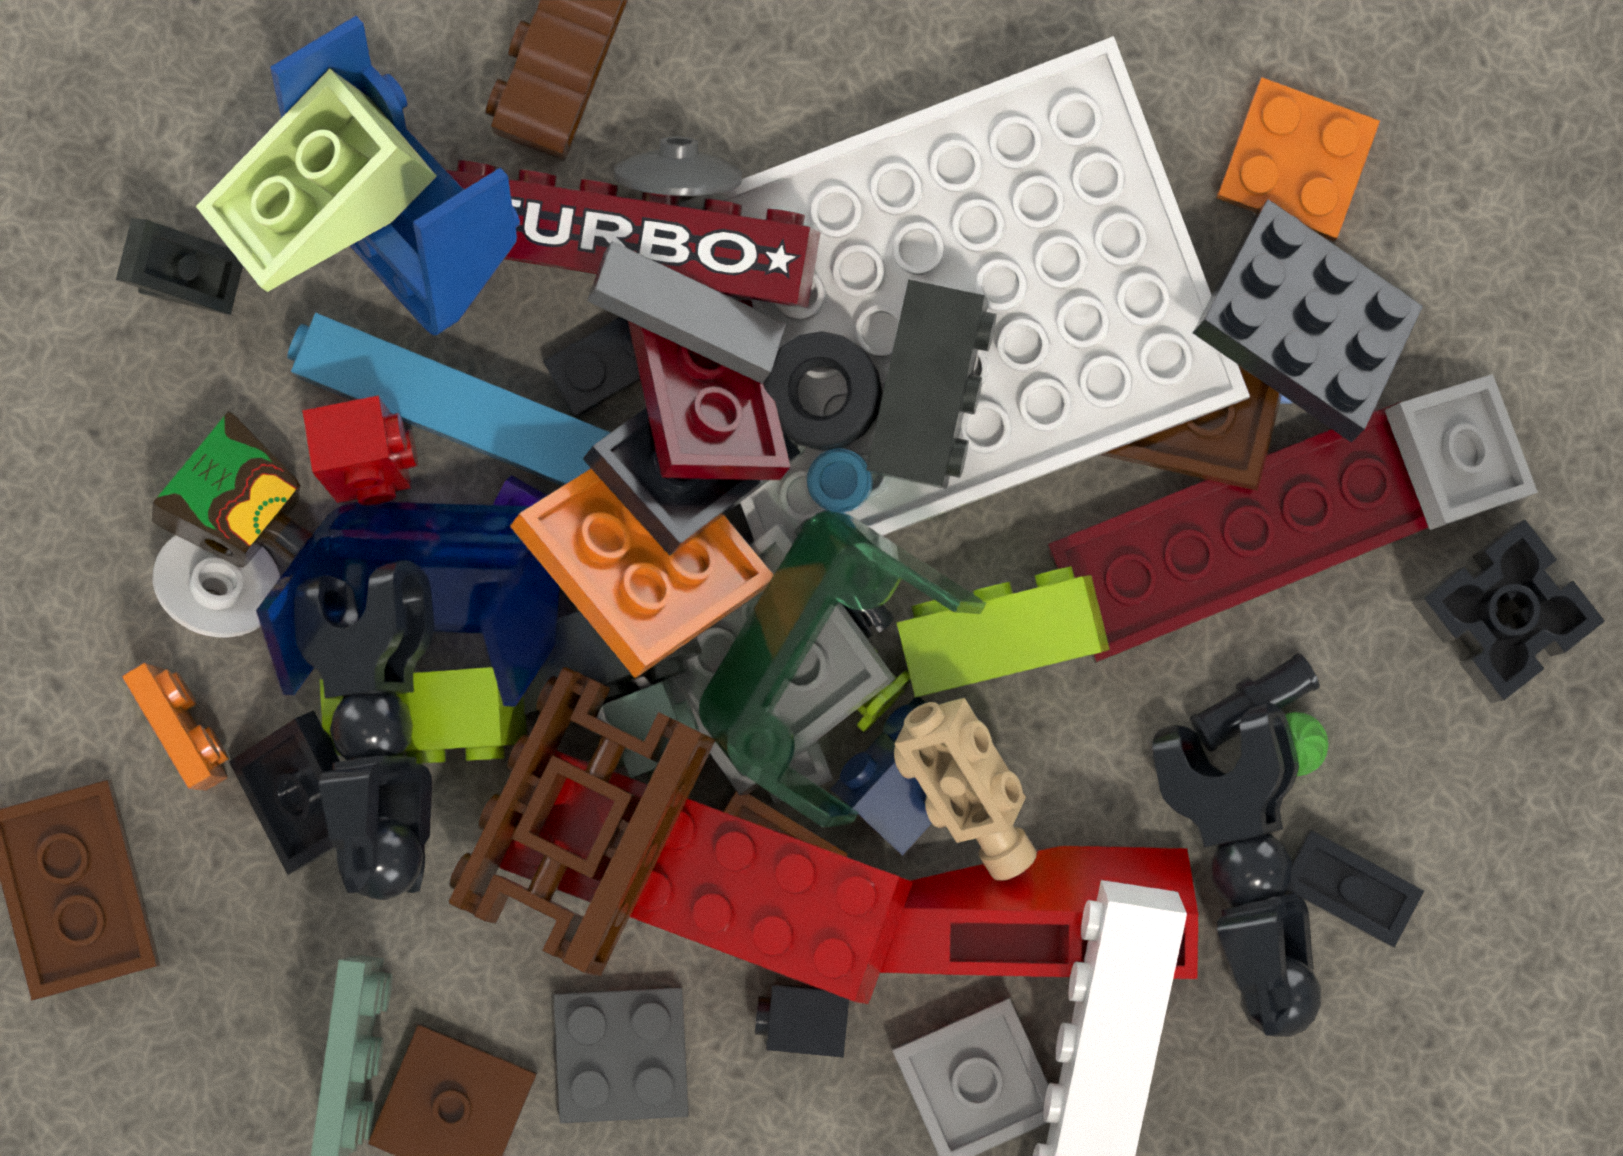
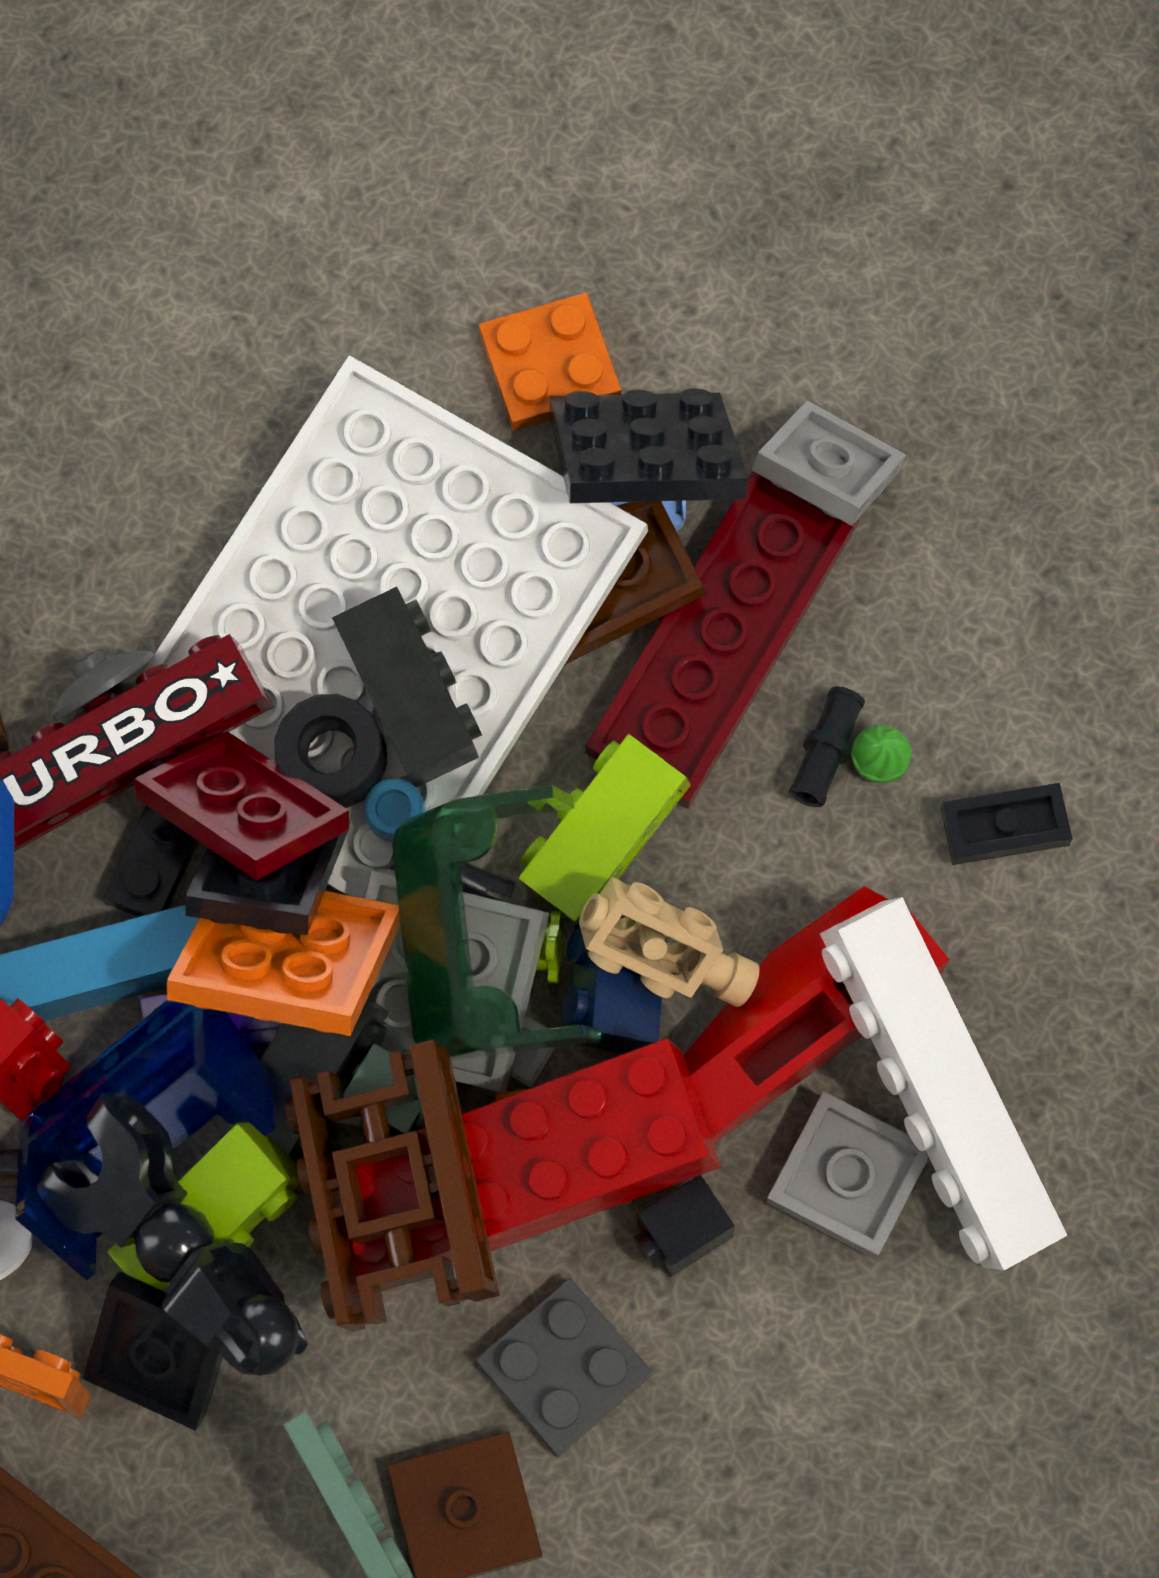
camera: 30 degrees left, 15 degrees down
(686, 312) = (183, 761): tile -> none
(1265, 930) = (920, 855): black piece -> none
(1546, 618) = (967, 574): black brick -> none

